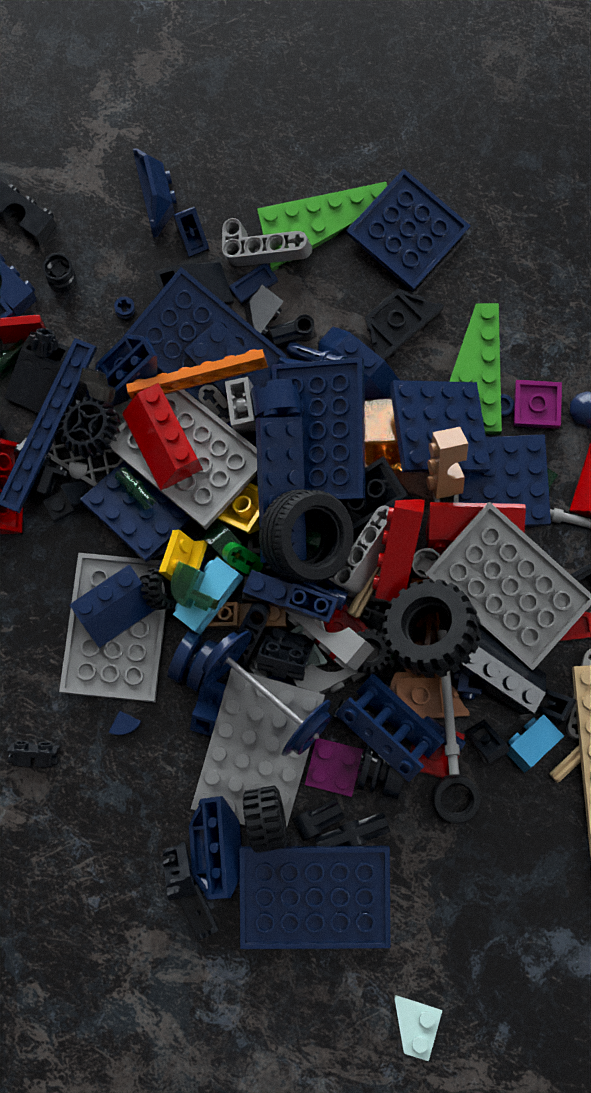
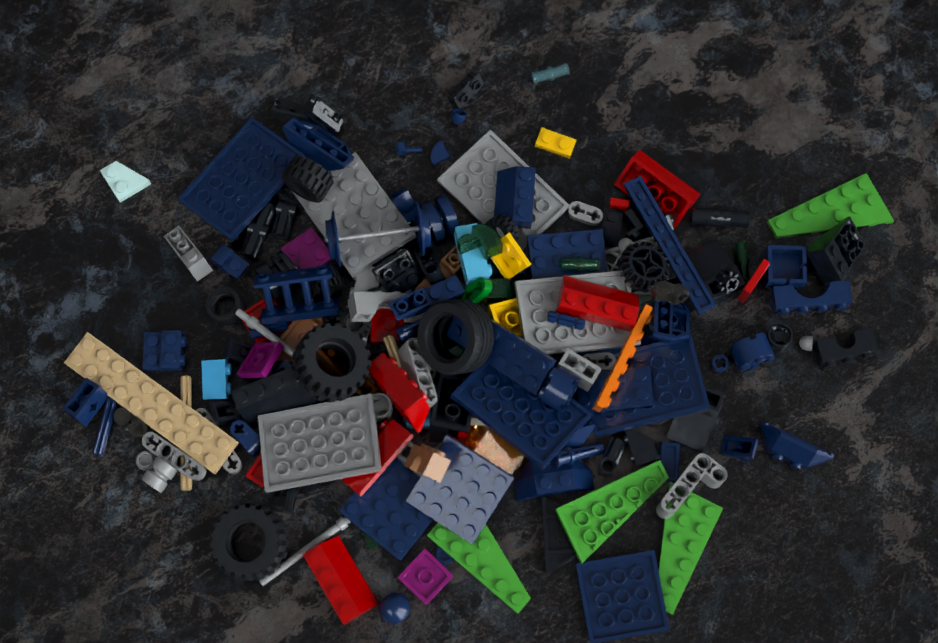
camera: 125 degrees right, 0 degrees up
(21, 620) = (555, 143): none -> yellow plate
(39, 509) = (619, 204): none -> red tile
(43, 248) = (806, 343): none -> light grey hinge
(68, 536) = (583, 217): none -> light grey beam
(69, 736) = (458, 116): none -> dark blue hinge
(93, 281) = (752, 351): none -> dark blue brick
(149, 765) = (402, 150): none -> dark blue hand
(204, 451) = (566, 320): none -> dark blue axle
(346, 297) = (600, 513): none -> bright green wing
(411, 833) = (228, 262): none -> dark blue brick
(435, 886) = (188, 253): none -> light grey slope
(481, 711) = (260, 360): none -> magenta plate
(549, 821) = (164, 351): none -> dark blue plate
(559, 663) = (249, 439): none -> dark blue piece

